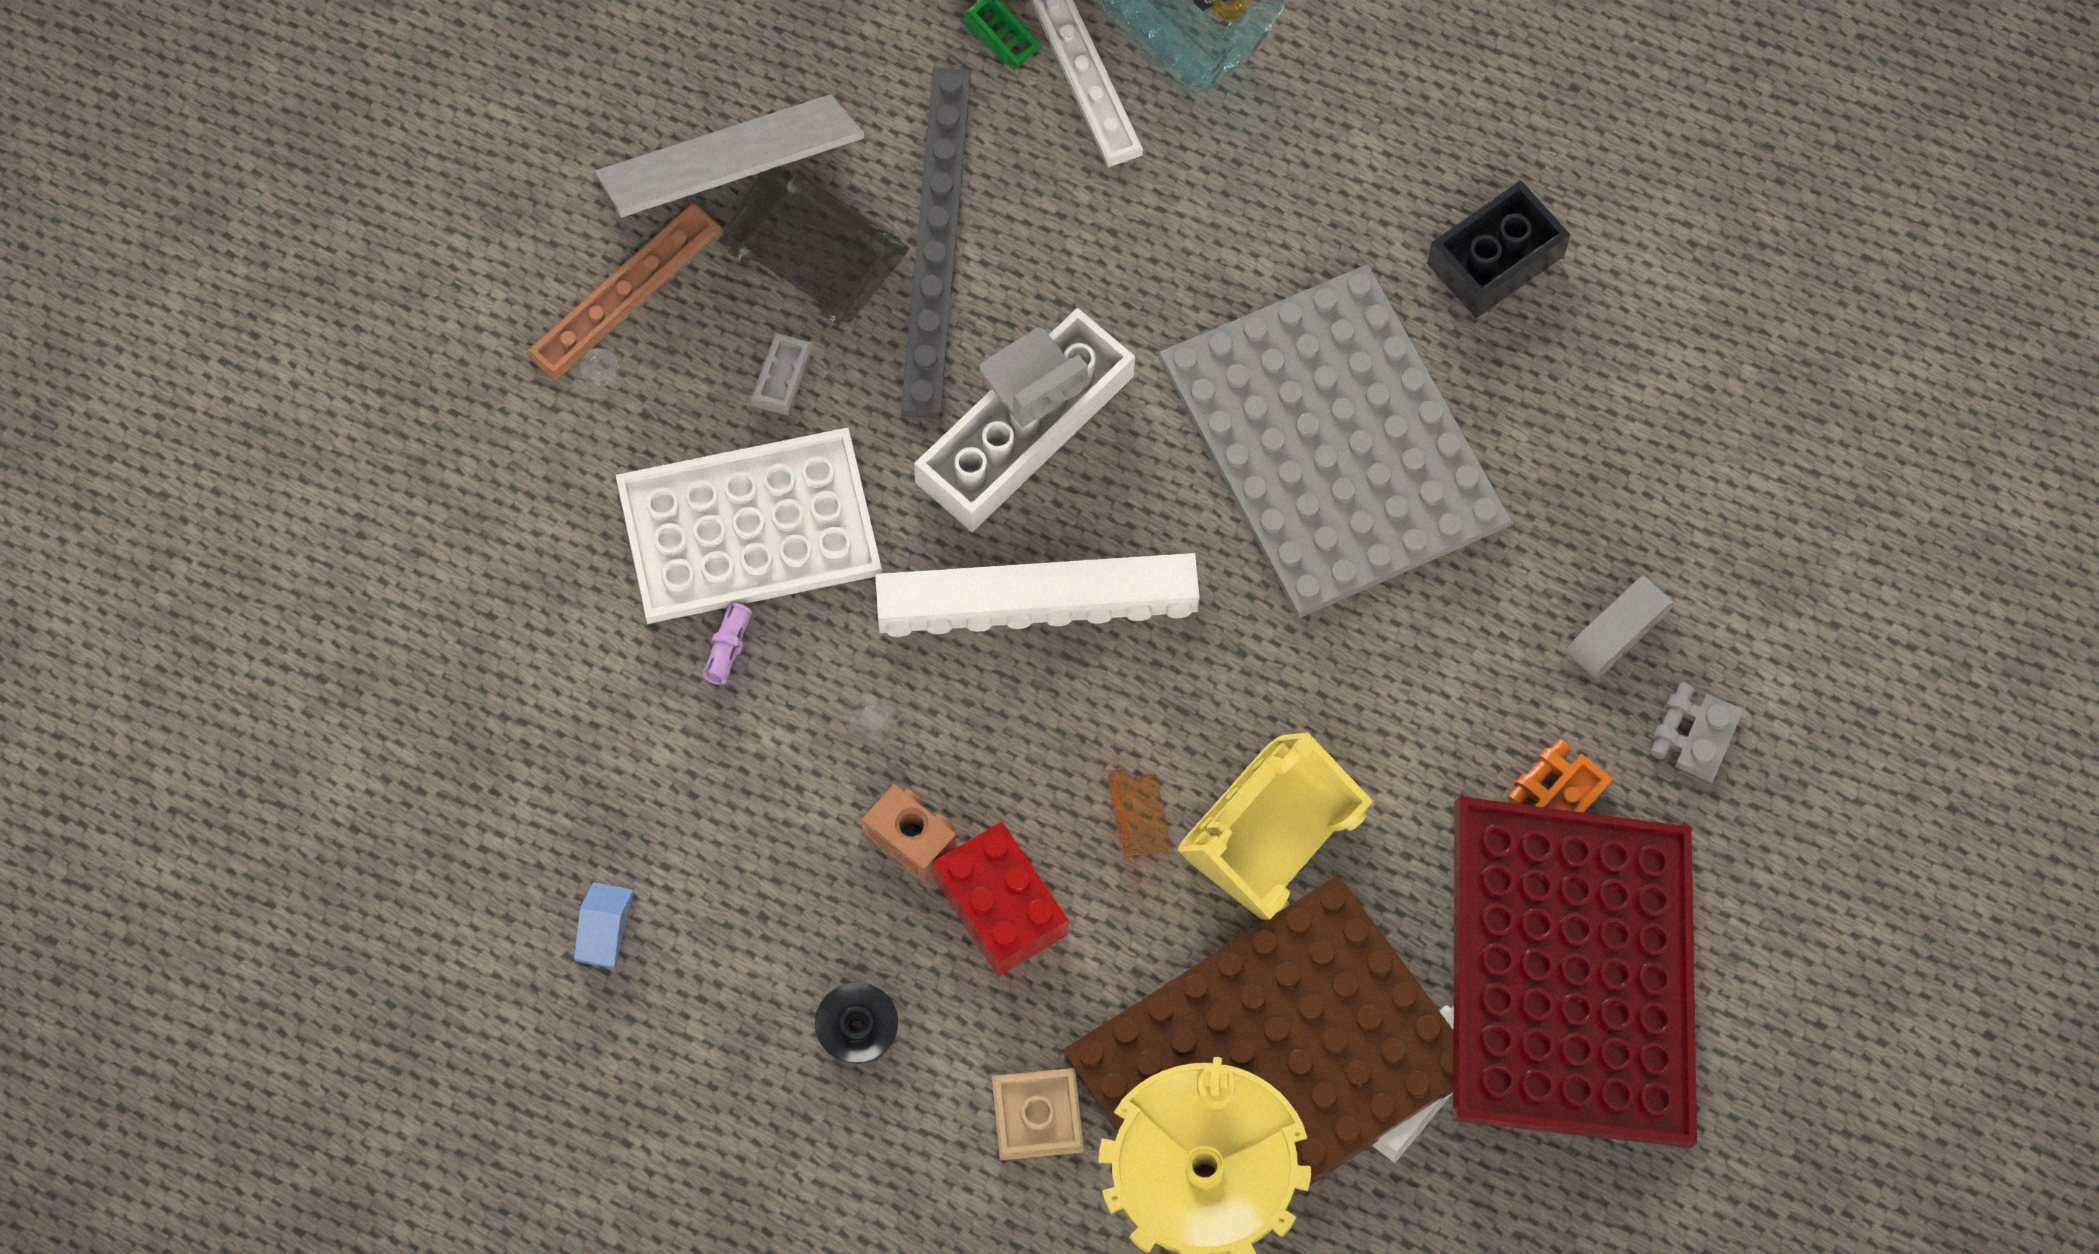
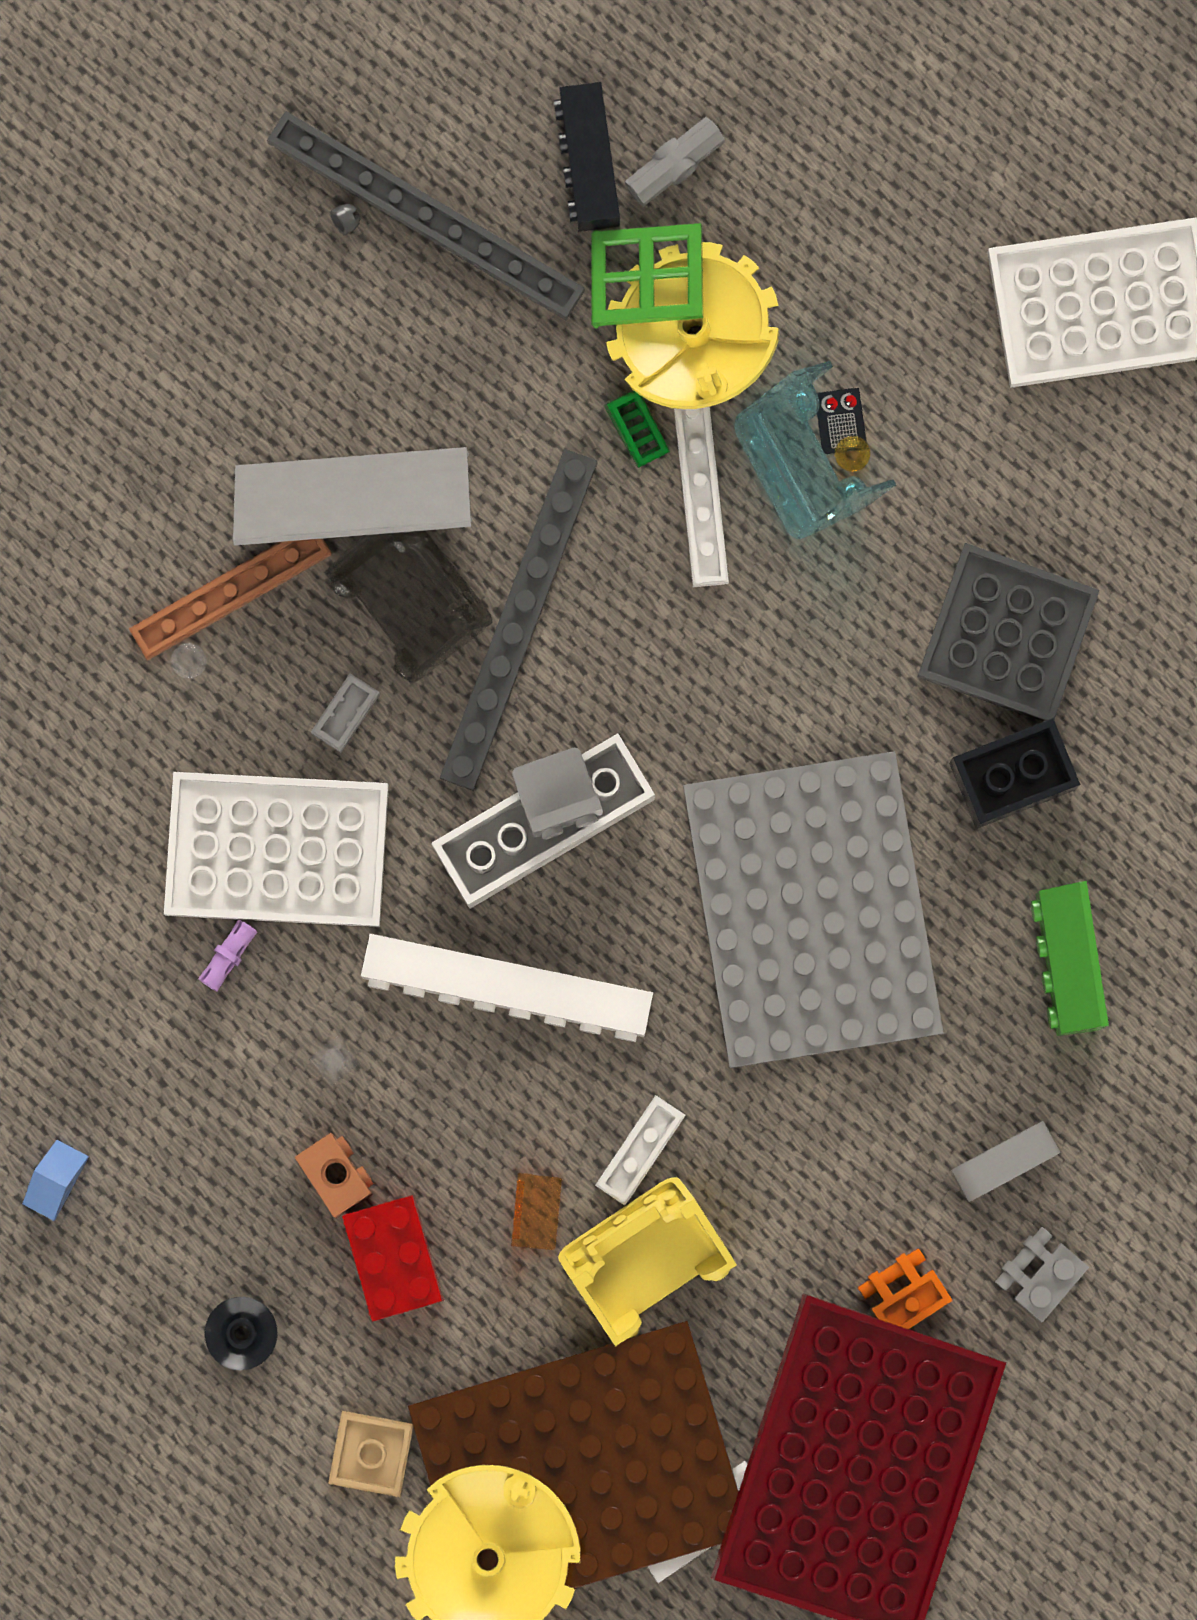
camera: 20 degrees right, 15 degrees up
(1230, 723) = (640, 1150): none -> white tile
(1444, 124) = (1008, 633): none -> dark grey plate
(1619, 408) = (1070, 959): none -> bright green slope

